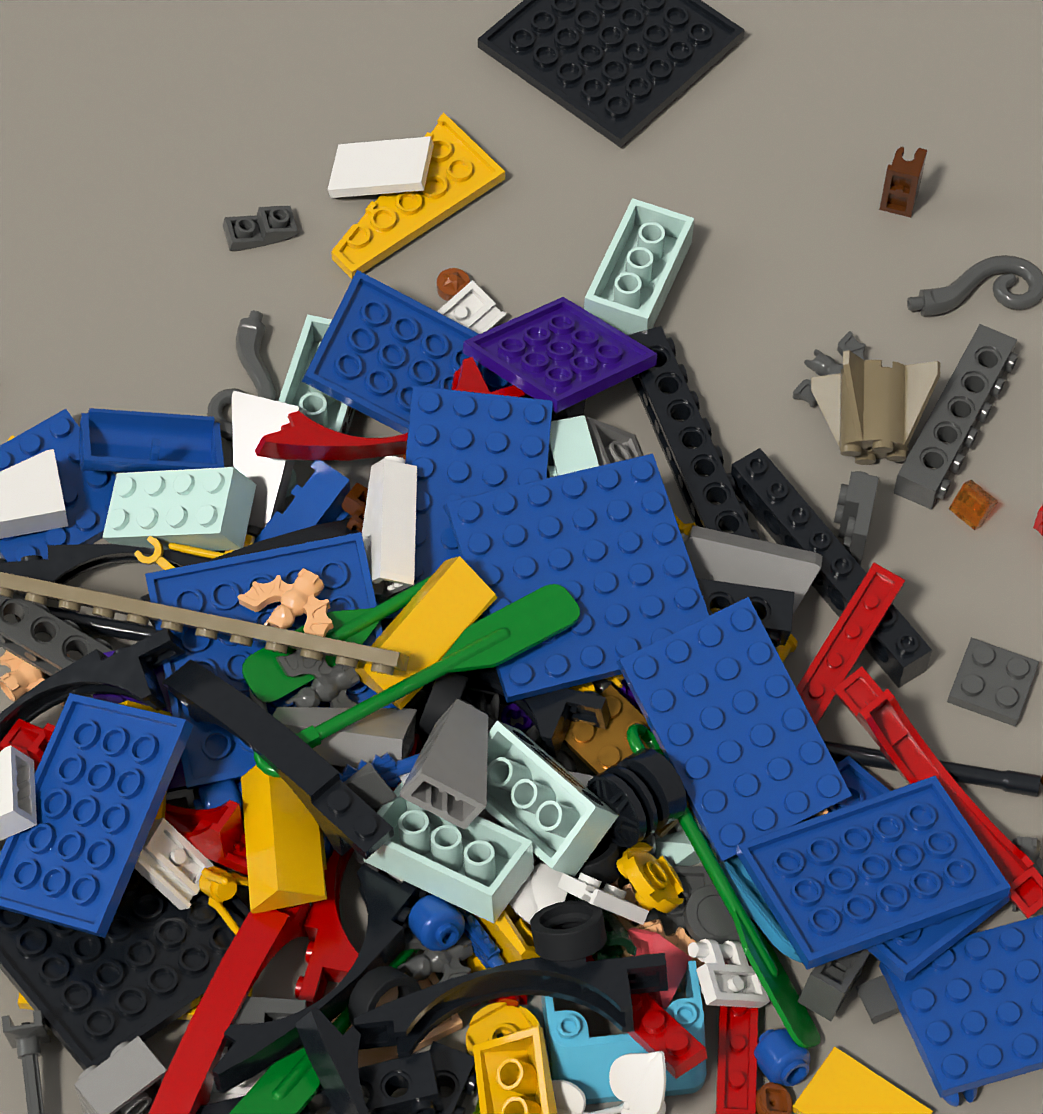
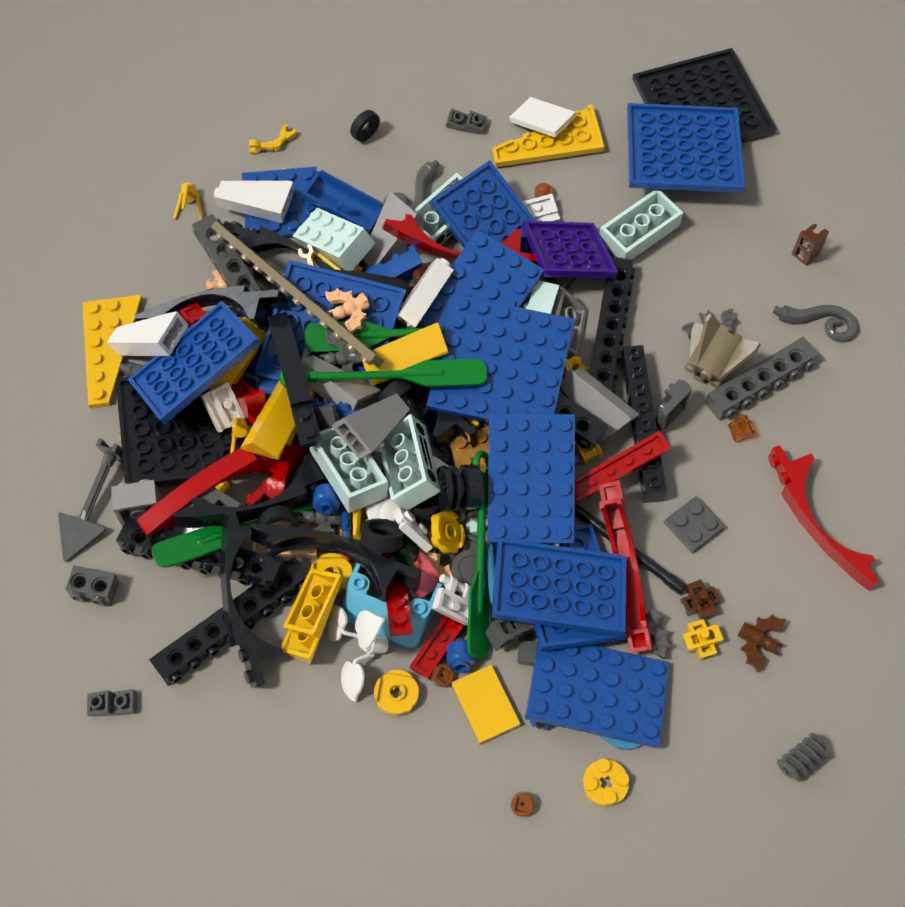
camera: 30 degrees right, 5 degrees up
(105, 307) = (367, 117): none -> black tyre
(633, 118) = (684, 148): none -> blue plate

